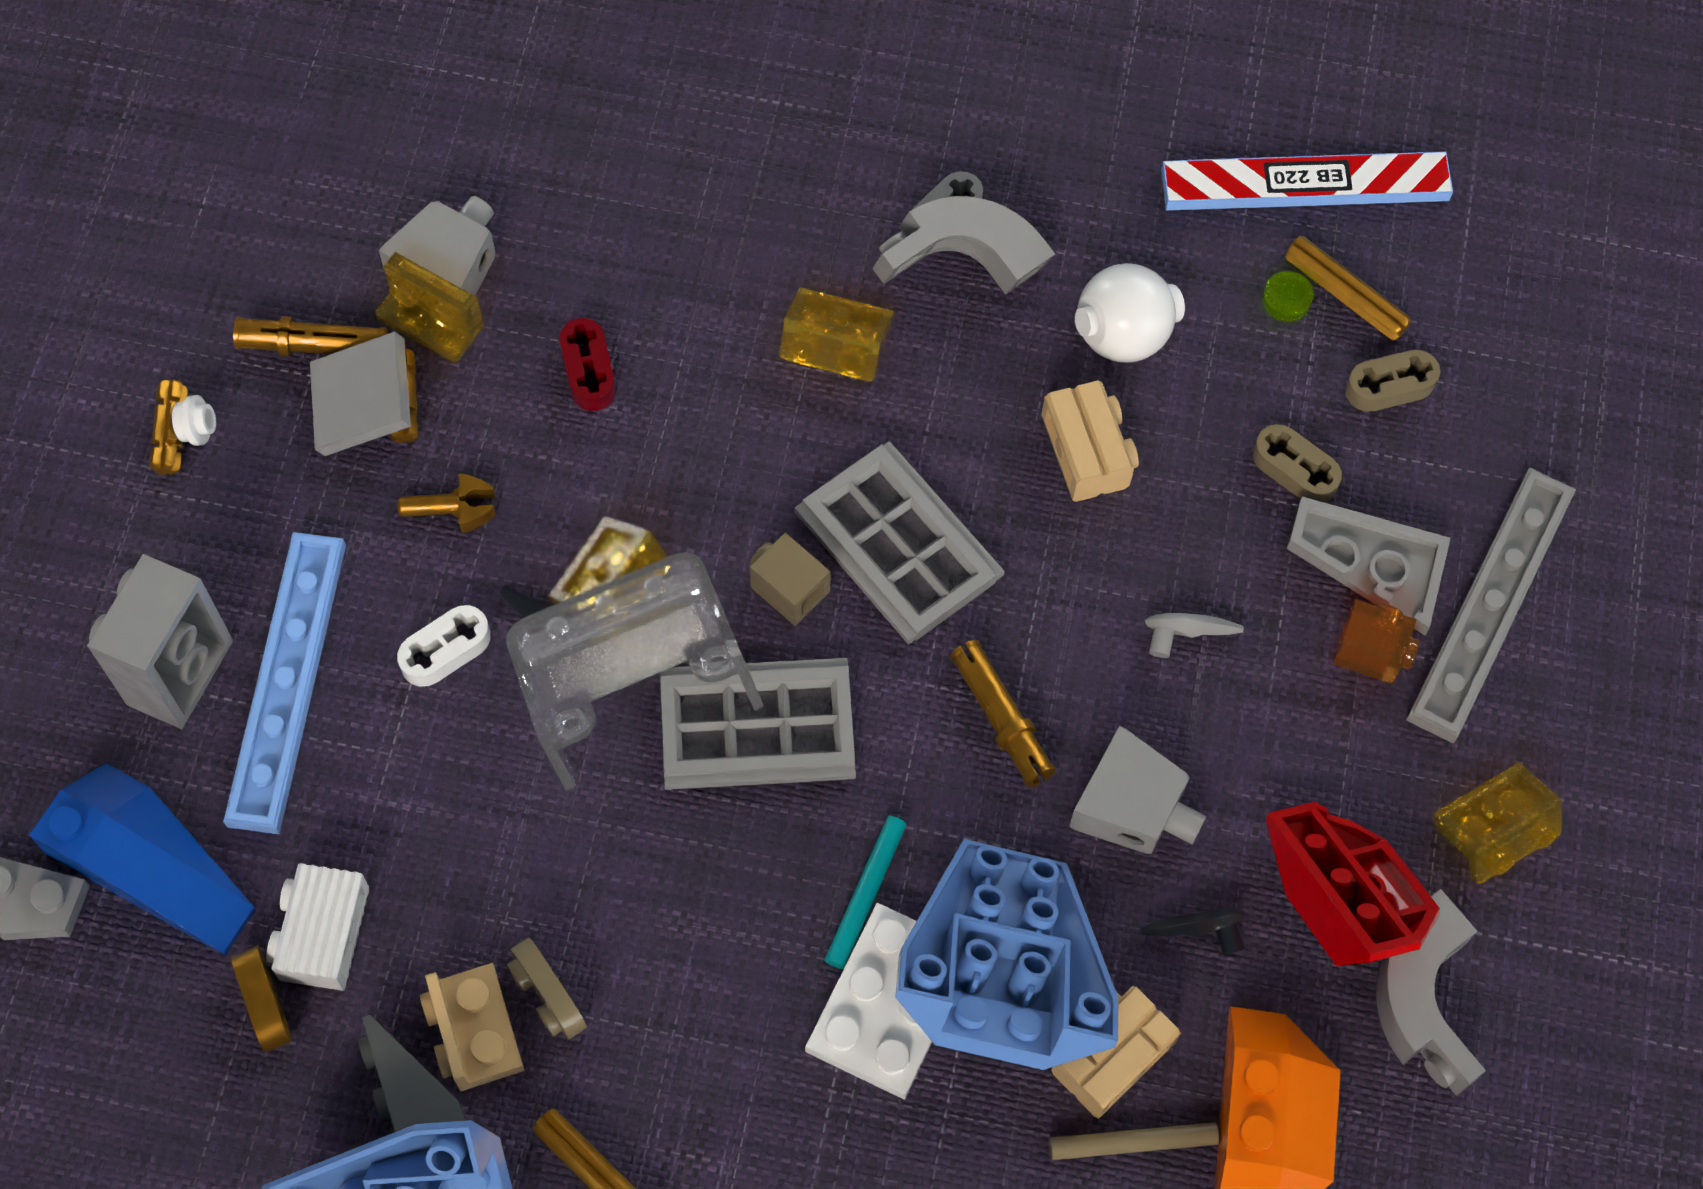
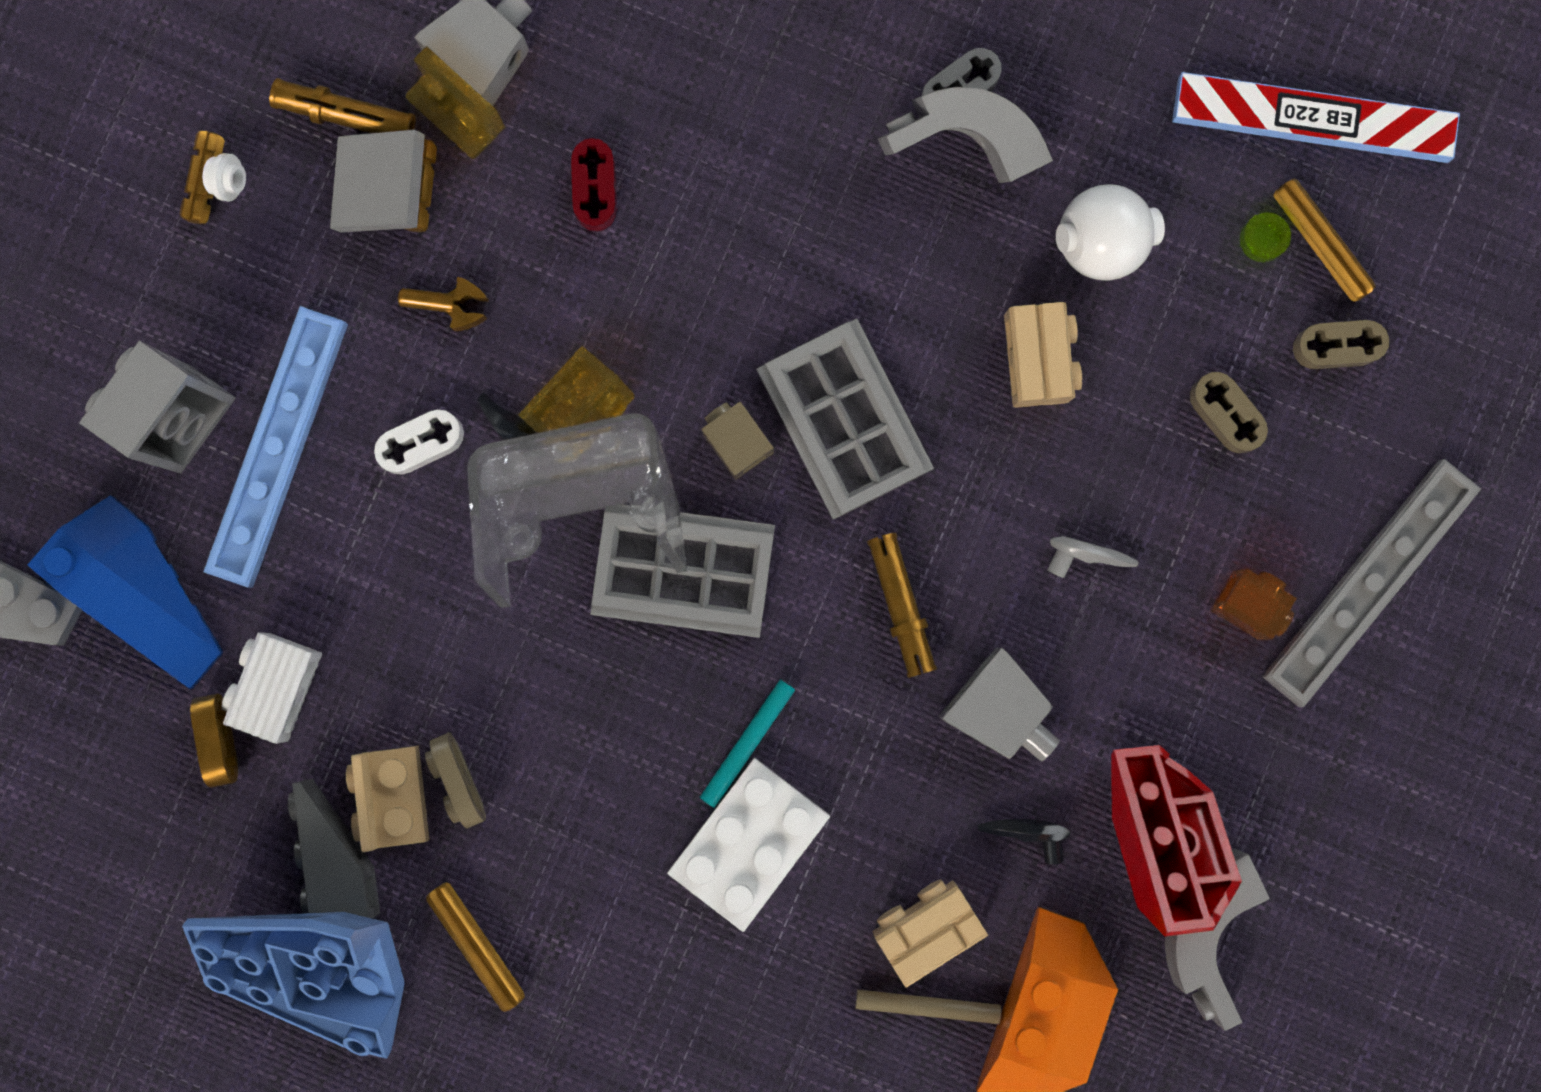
camera: 15 degrees right, 20 degrees up
(835, 334) = (829, 197): clear yellow bracket -> none
(1008, 963) = (854, 842): medium blue wedge -> none
(1372, 556) = (1275, 521): light grey wing -> none
(1501, 821) = (1320, 793): clear yellow bracket -> none

